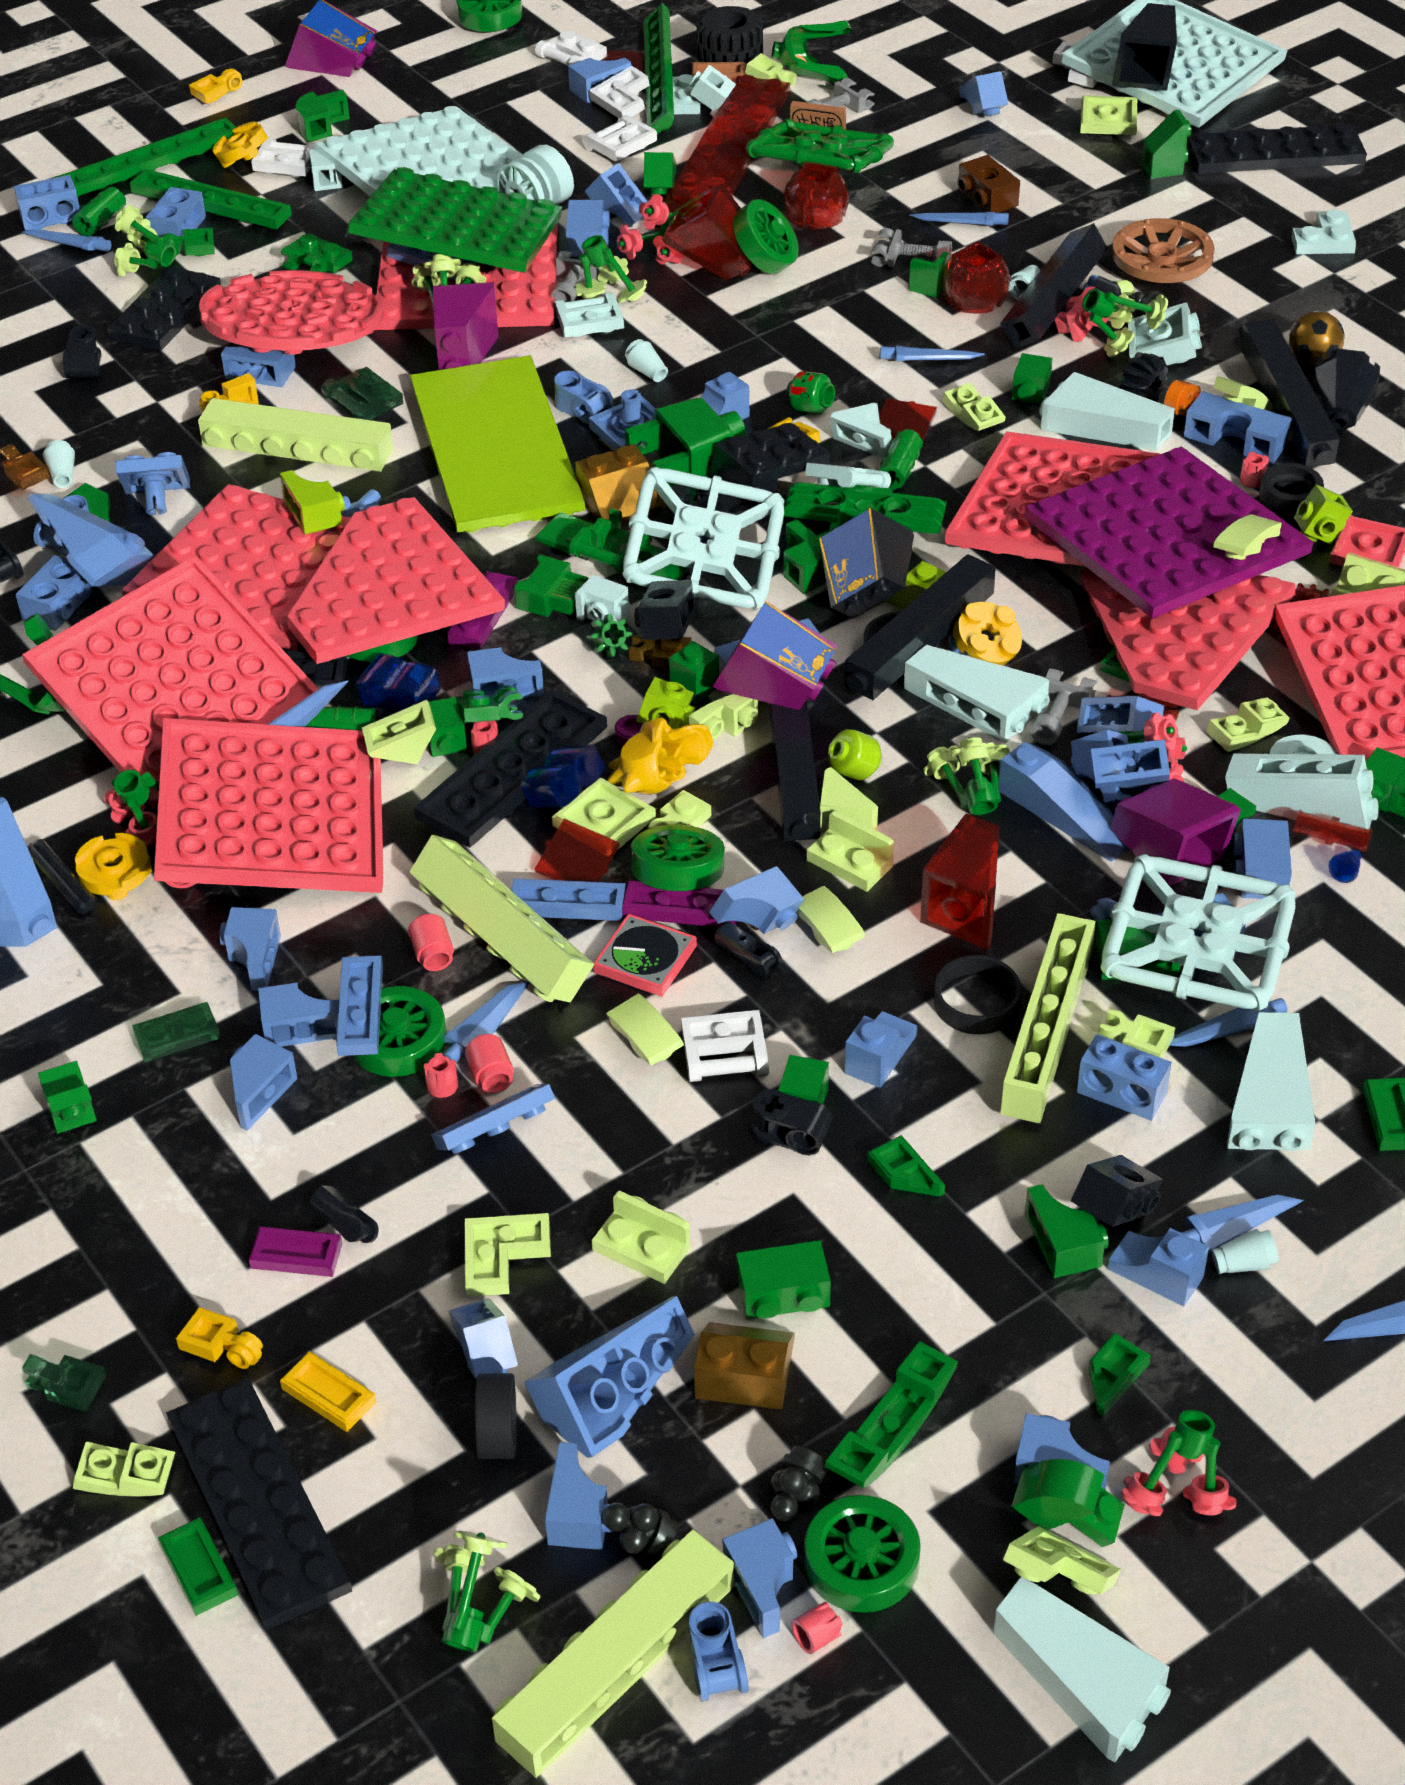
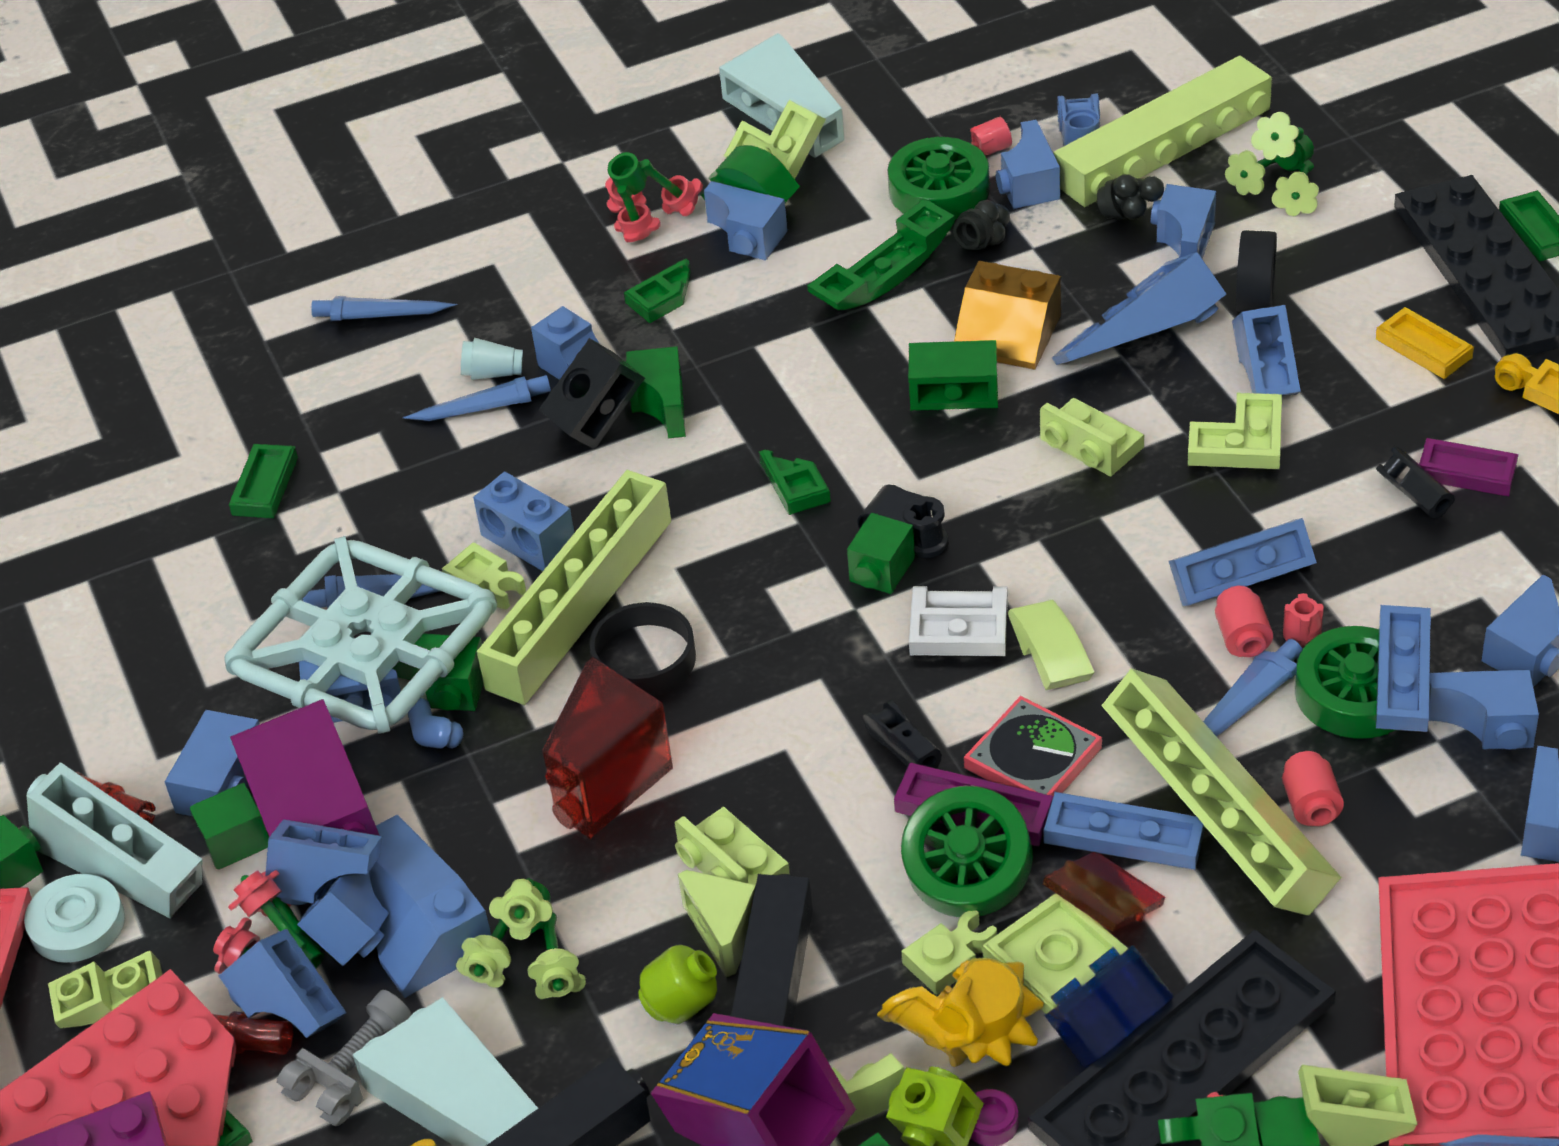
camera: 165 degrees left, 0 degrees up
(762, 901) = (878, 761): medium blue arch -> none
(830, 920) = (791, 756): yellowish green slope -> none
(877, 1047) = (783, 590): medium blue arch -> none
(1274, 1090) = (377, 494): light aqua slope -> none
(1345, 866) = (117, 760): clear blue hair -> none

